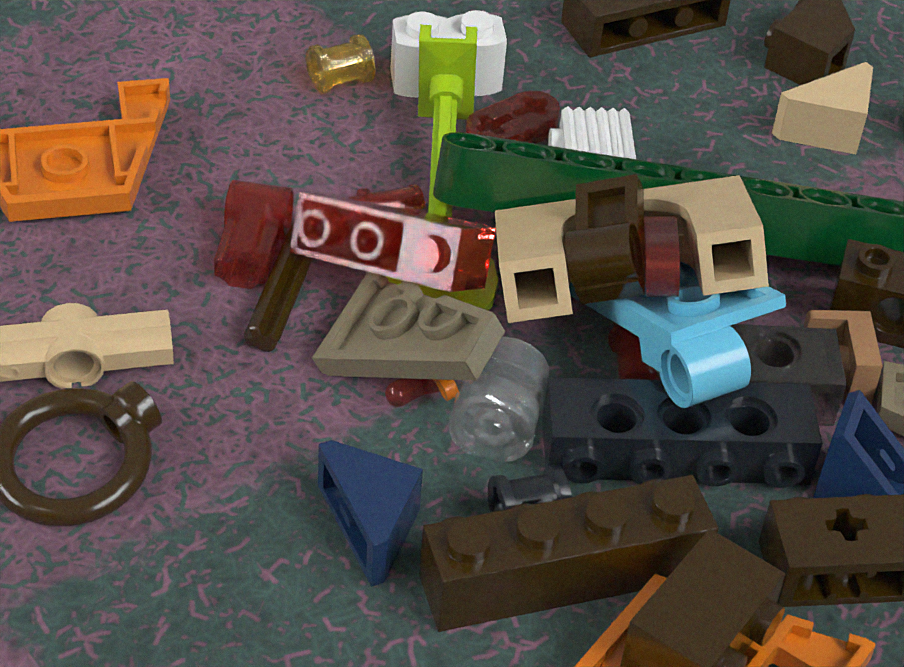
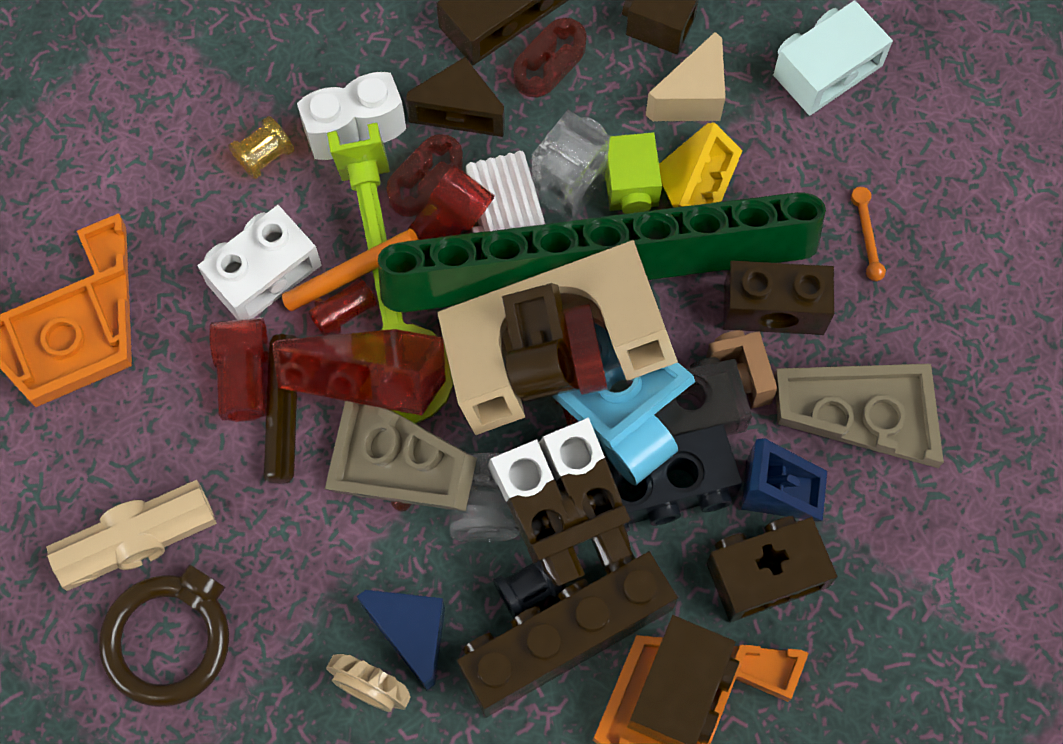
camera: 10 degrees left, 25 degrees up
(303, 537) = (368, 683): none -> tan gear
(308, 147) = (259, 263): none -> white brick
(388, 173) = (340, 274): none -> orange bar
(545, 117) = (452, 206): none -> clear red piece
(565, 66) = (457, 101): none -> dark brown slope
(599, 390) = (557, 519): none -> dark brown hips
(676, 63) = (543, 50): none -> clear red beam
(682, 118) = (570, 165): none -> clear brick
(749, 148) = (633, 173): none -> lime brick
(834, 167) = (700, 168): none -> yellow slope

